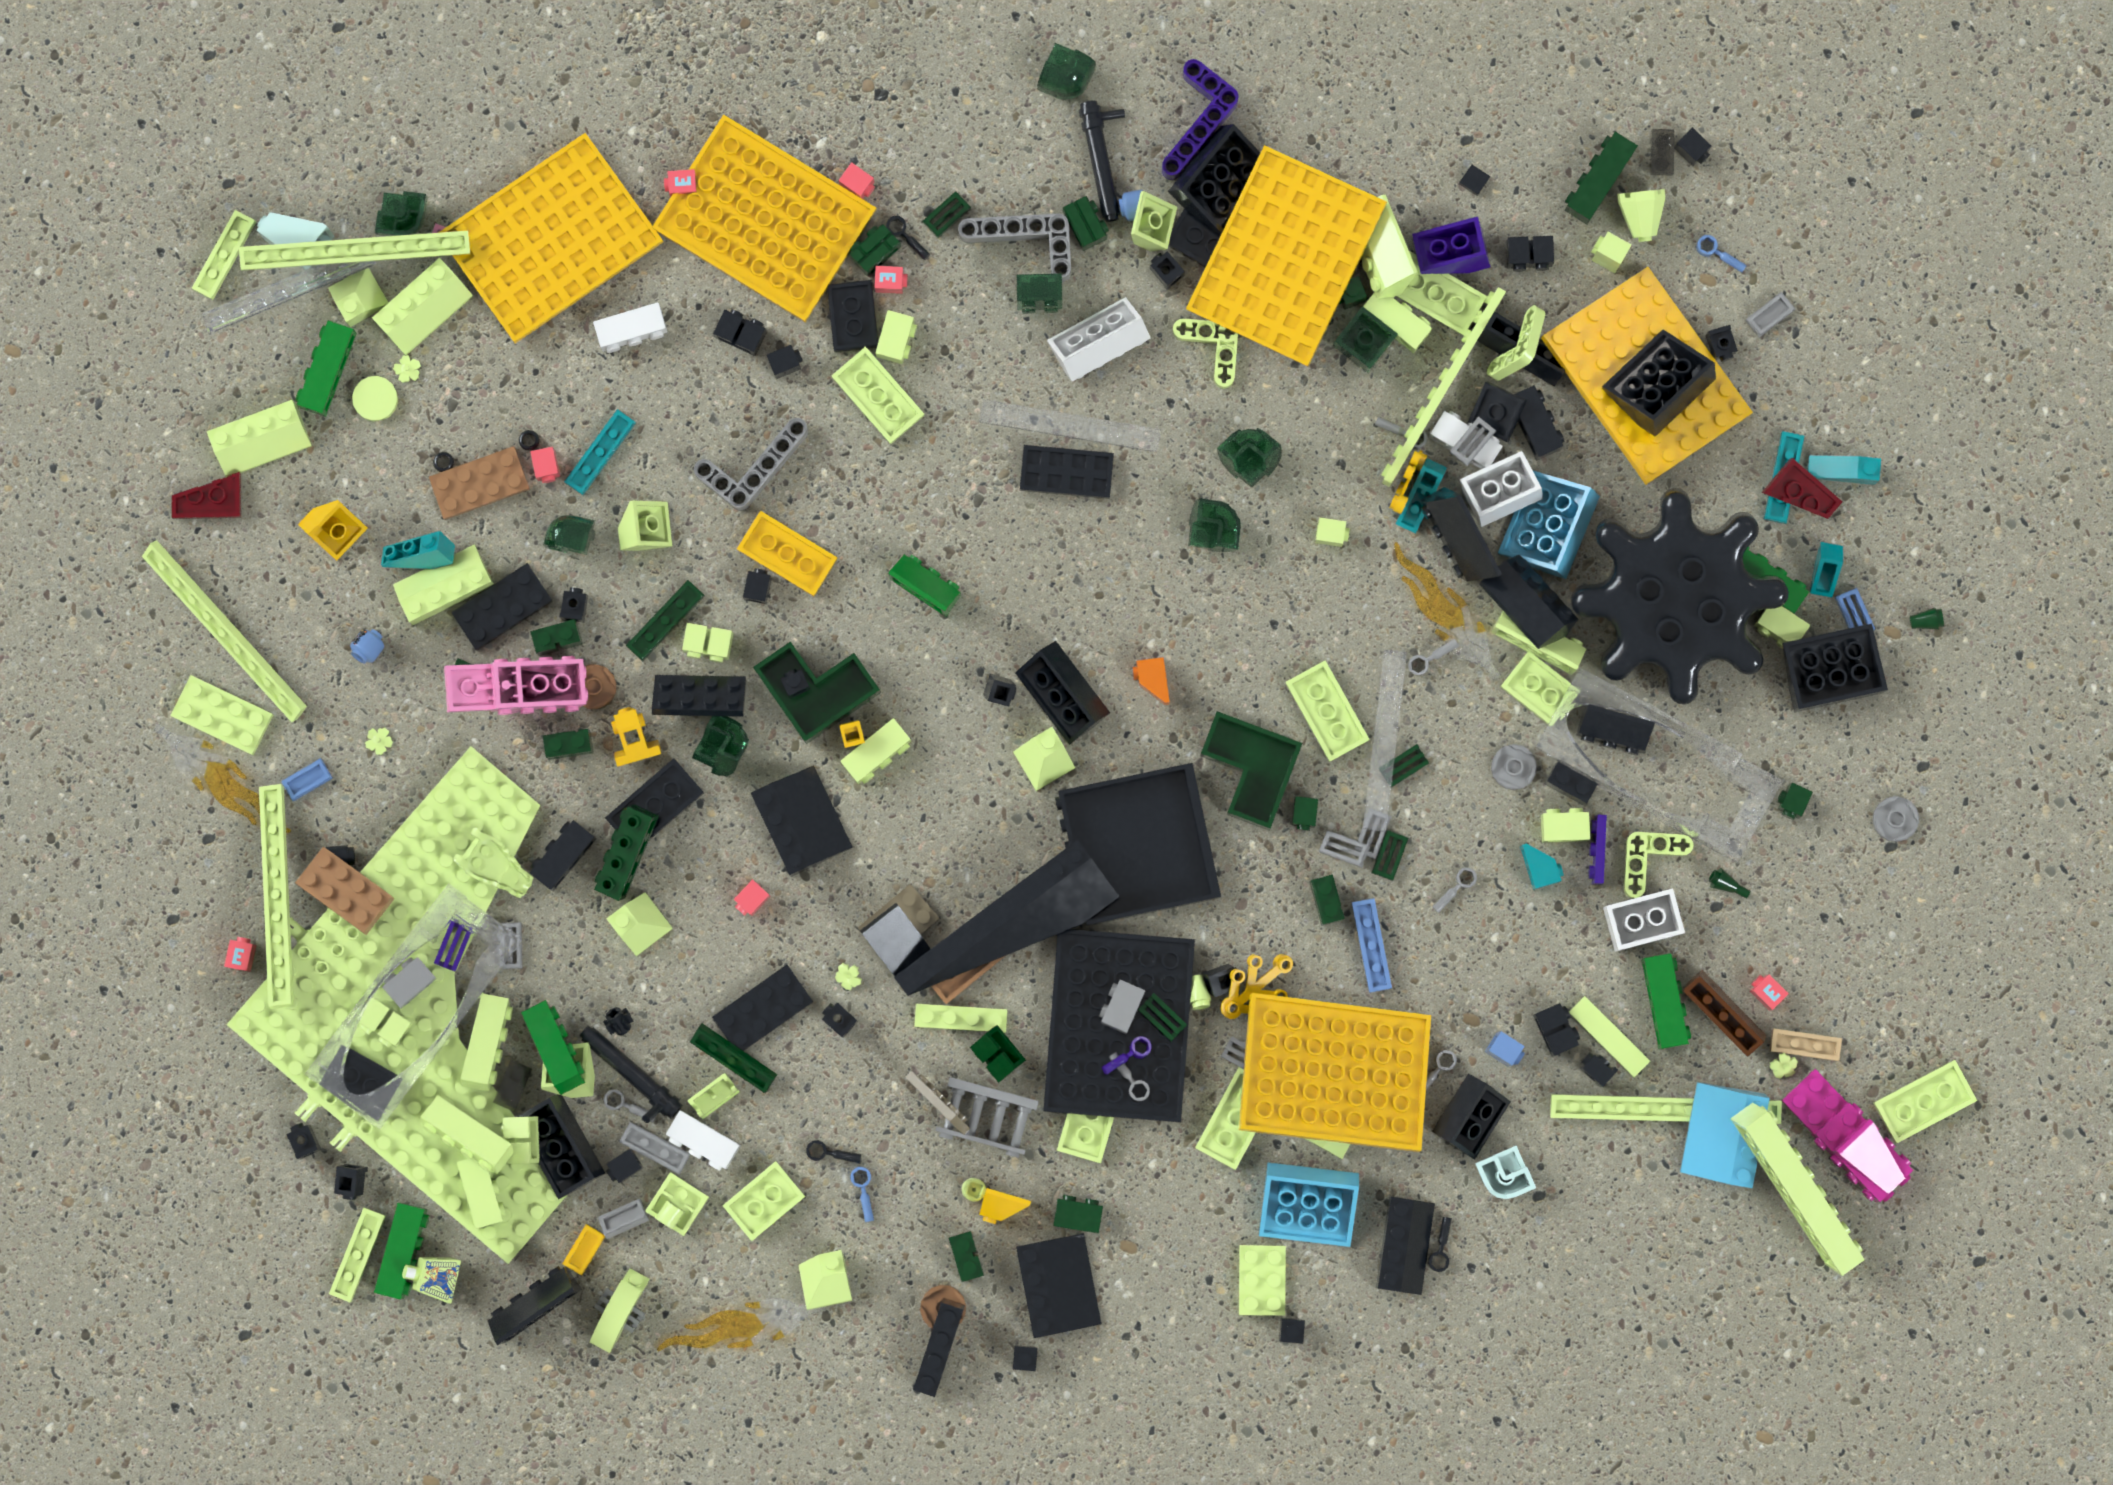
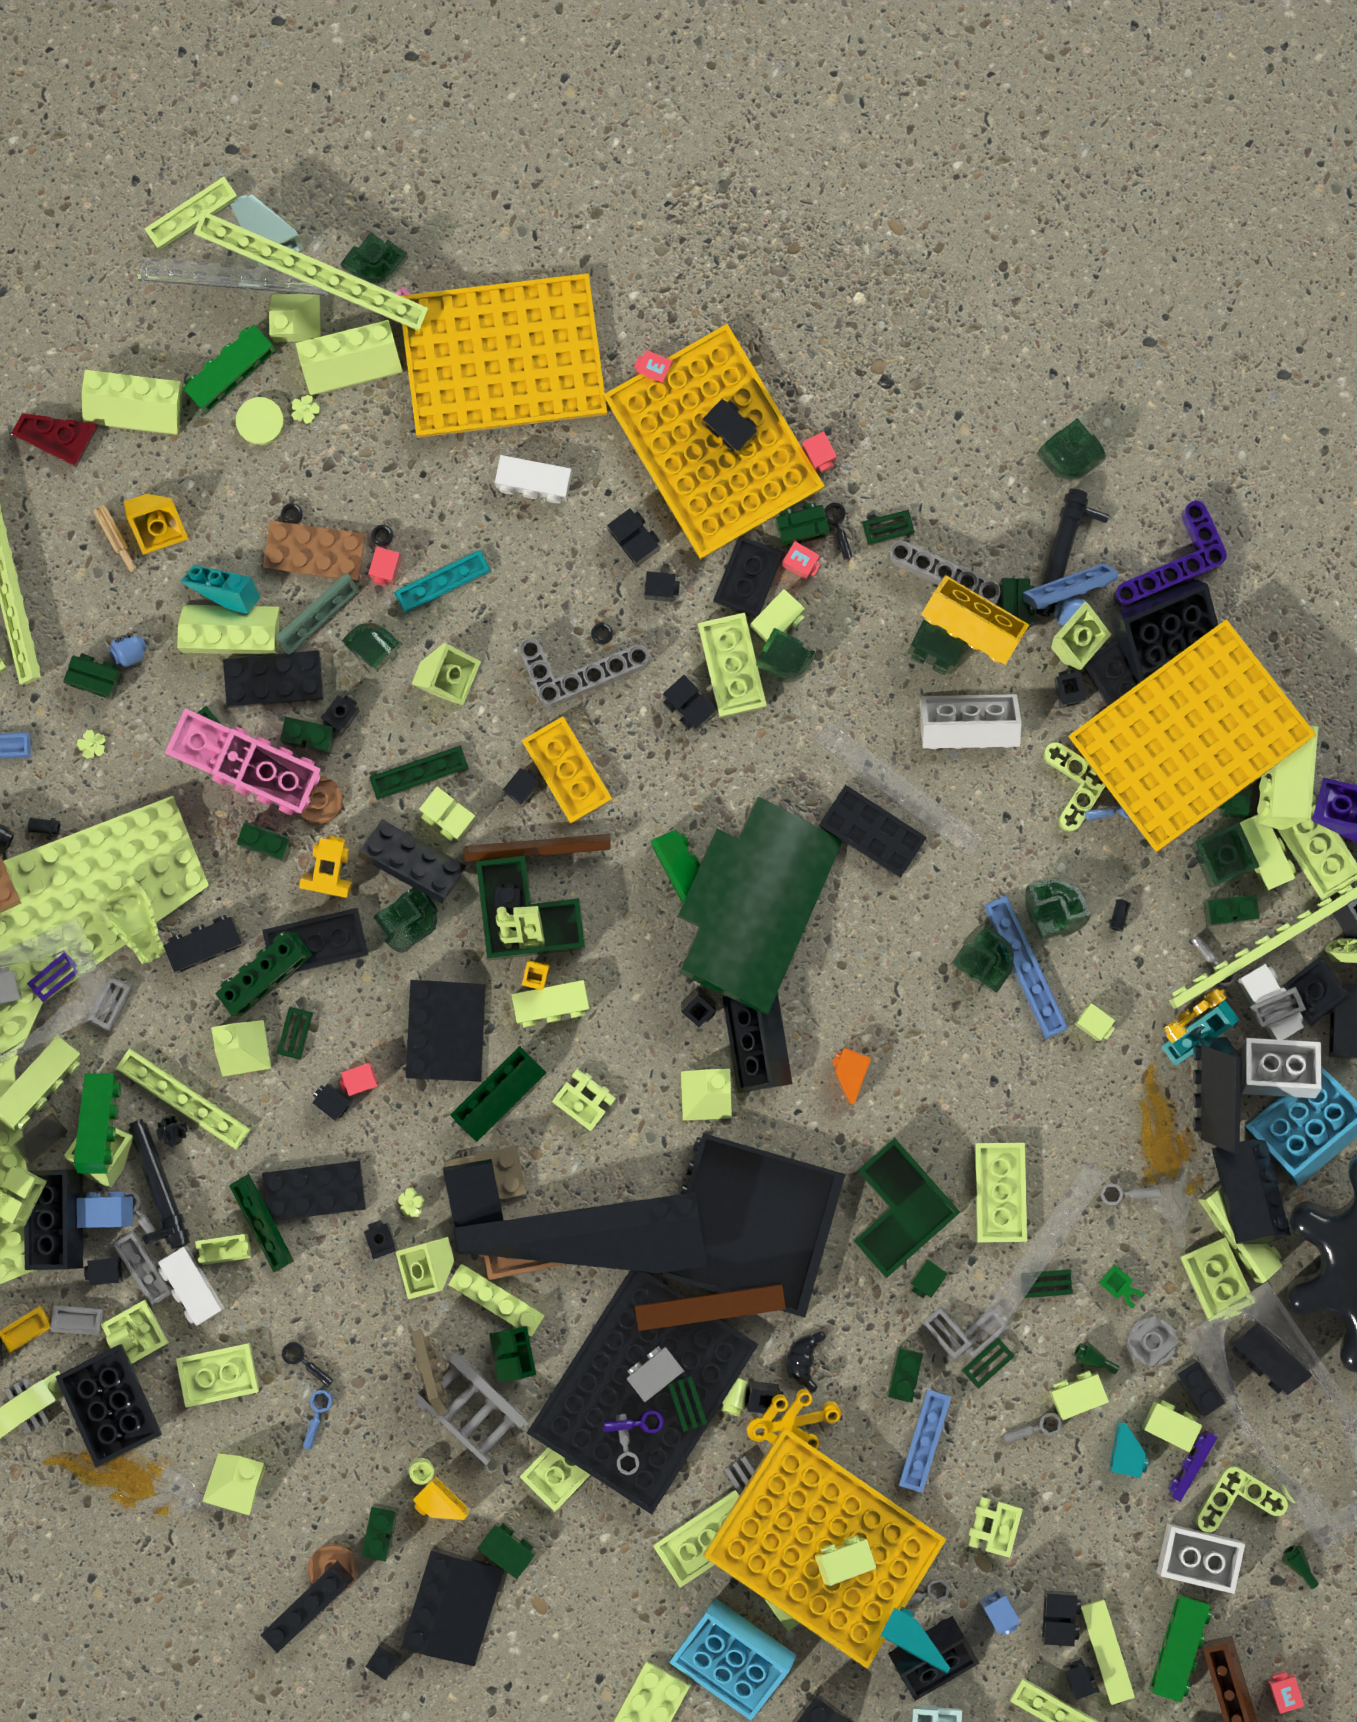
camera: 30 degrees right, 0 degrees up
(303, 557) = (114, 535): none -> tan axle
(350, 683) = (92, 676): none -> dark green brick
(376, 828) = (44, 826): none -> black pin
(510, 533) = (317, 613): none -> sand green tile
(599, 1116) = (104, 1211): none -> medium blue brick
(613, 991) = (183, 1099): none -> yellowish green tile
(681, 908) = (309, 1015): none -> dark green tile
(689, 1270) = (108, 1406): none -> black slope
(738, 928) = (331, 1101): none -> black brick
(759, 419) = (605, 641): none -> black piece
(772, 198) = (728, 424): none -> black piece
(797, 629) = (537, 847): none -> reddish brown tile
(824, 697) = (527, 924): none -> yellowish green plate
(858, 446) = (689, 704): none -> black piece
(873, 848) = (499, 1095): none -> dark green brick
(888, 1021) = (425, 1267): none -> yellowish green slope
(919, 365) = (785, 657): none -> clear green brick
(942, 823) = (579, 1106): none -> yellowish green plate
(1001, 579) = (755, 903): none -> dark green slope
(1059, 253) = (974, 620): none -> yellow brick
(1122, 184) = (1070, 585): none -> medium blue plate
(1139, 928) = (710, 1307): none -> reddish brown tile
(1236, 933) = (801, 1359): none -> black piece
(1248, 356) = (1104, 812): none -> medium blue piece
(1252, 517) = (1027, 968): none -> medium blue tile
(1305, 434) = (1119, 915): none -> black pin
(1357, 1072) = (845, 1560): none -> yellowish green brick
(1386, 386) = (1221, 911): none -> dark green piece
(1441, 1105) = (909, 1635): none -> teal slope
(1461, 735) = (1118, 1283): none -> green plate
(1469, 805) = (1090, 1356): none -> dark green cone
(1472, 982) = (1003, 1527): none -> yellowish green plate
(1476, 842) = (1078, 1395): none -> yellowish green brick

